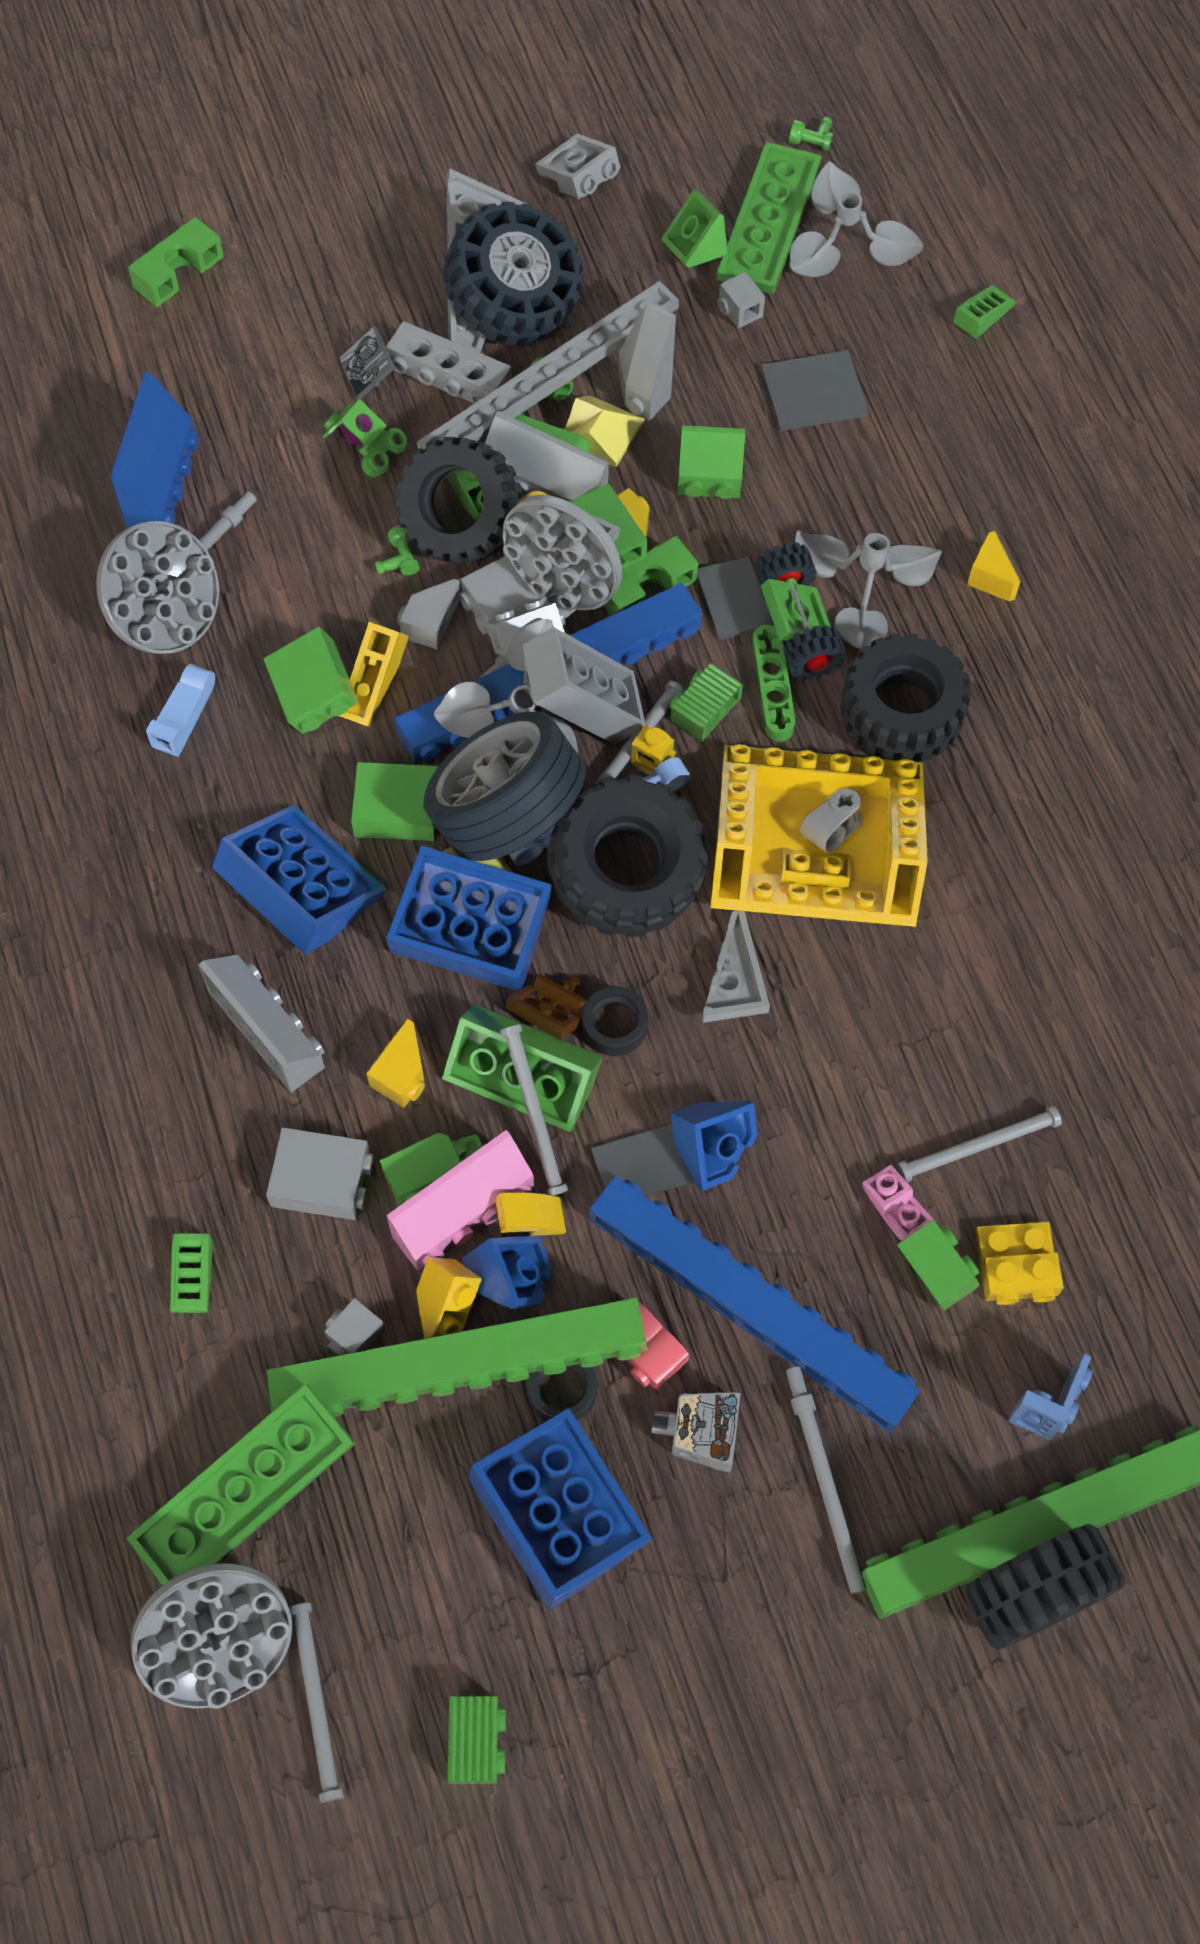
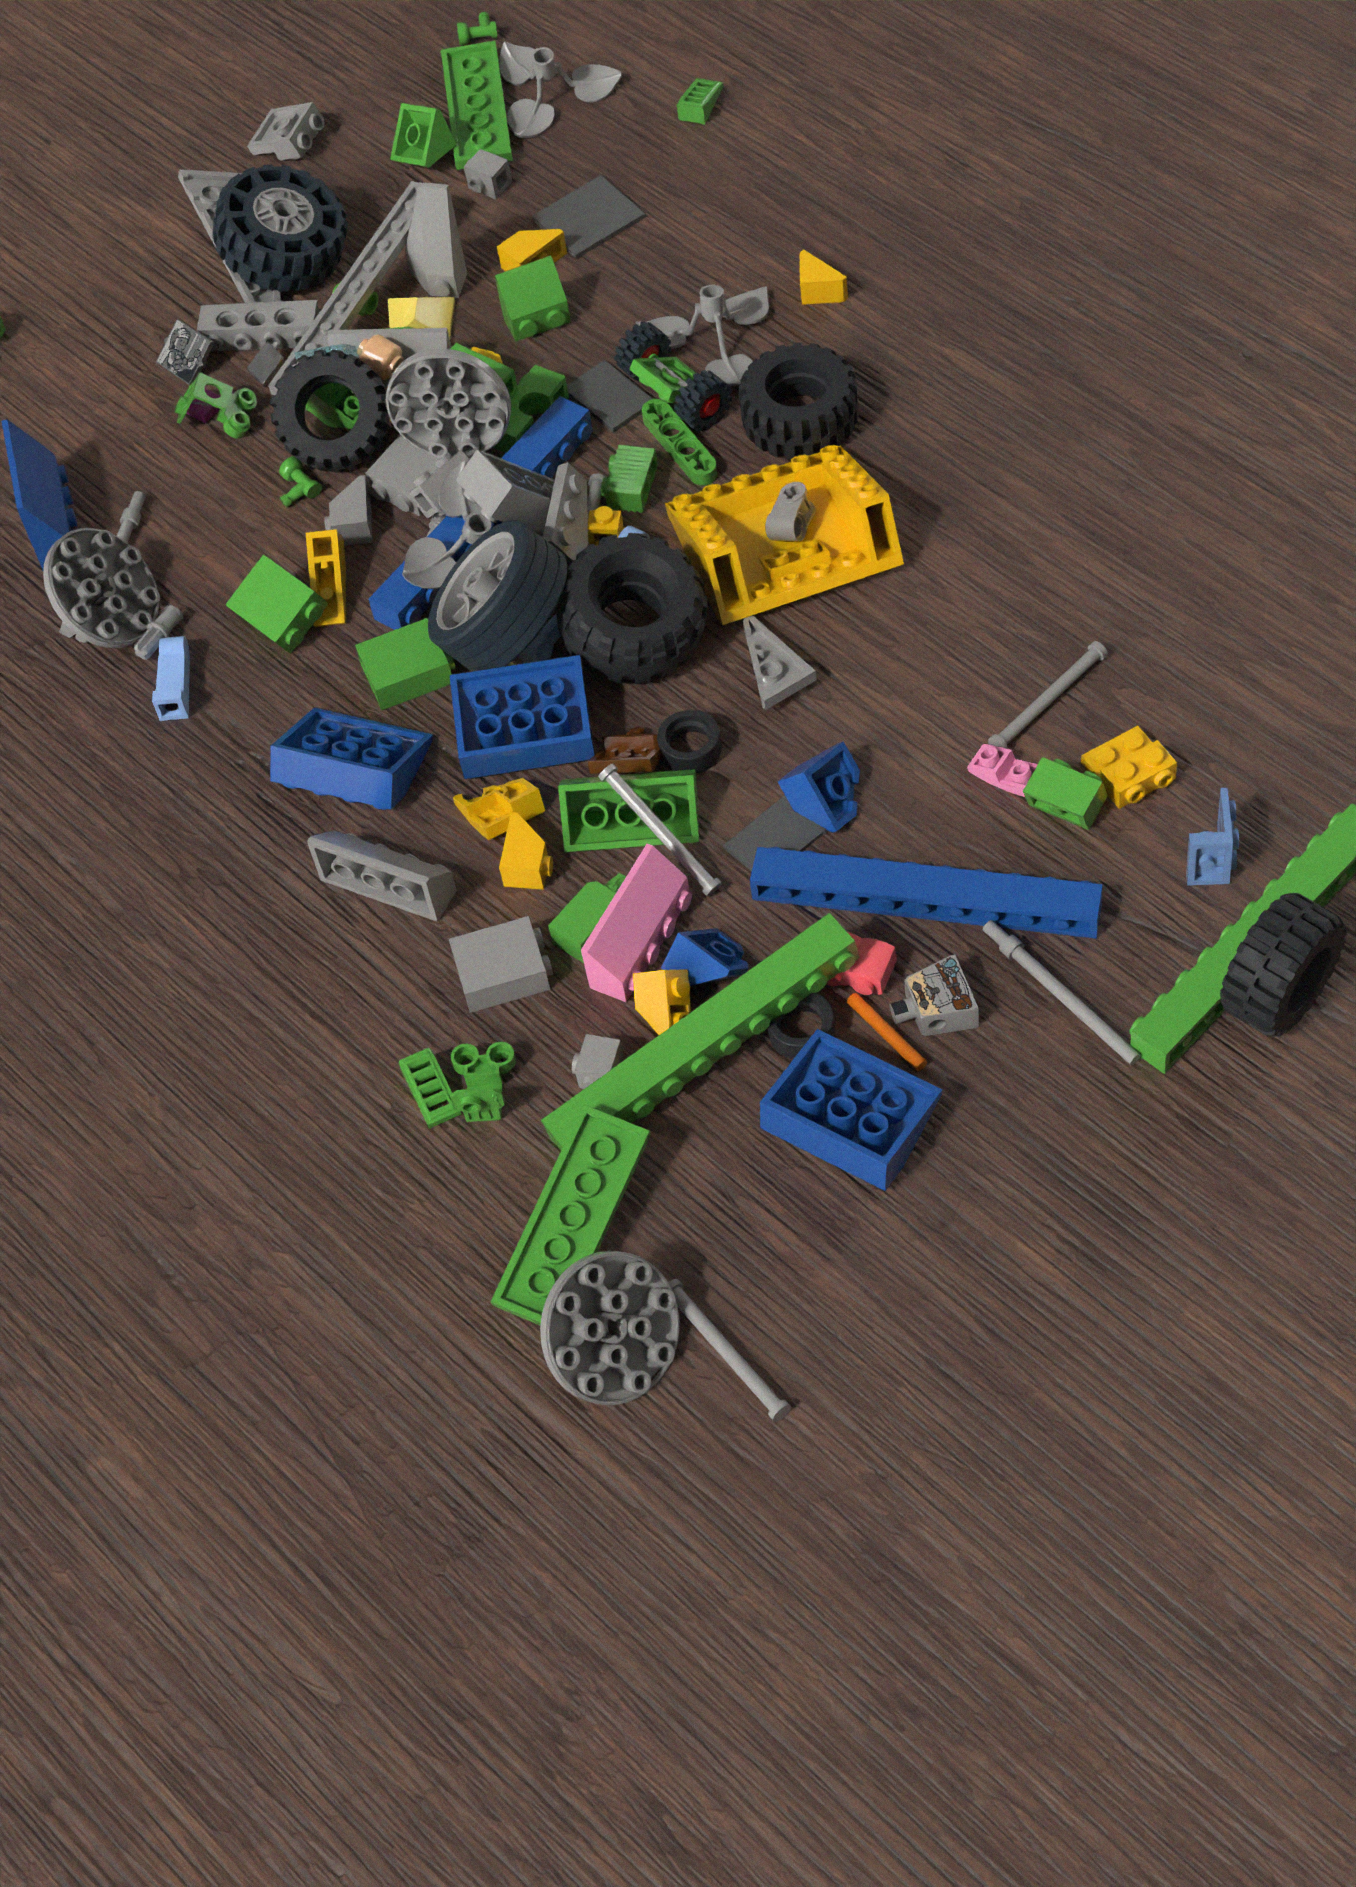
camera: 15 degrees left, 10 degrees down
(193, 653) = (158, 629): none -> light grey axle
(243, 1285) = (484, 1090): none -> bright green piece
(407, 998) = (492, 810): none -> yellow slope
(434, 411) = (266, 364): none -> flat silver slope
(474, 1740) = (878, 1310): bright green brick -> none
(481, 436) = (345, 348): none -> clear light blue piece
(530, 1212) = (700, 907): yellow slope -> none
(532, 463) = (380, 355): none -> light nougat head
(613, 732) = (568, 514): none -> light grey wing
(639, 1434) = (887, 1032): none -> orange bar
(739, 405) = (531, 246): none -> yellow slope

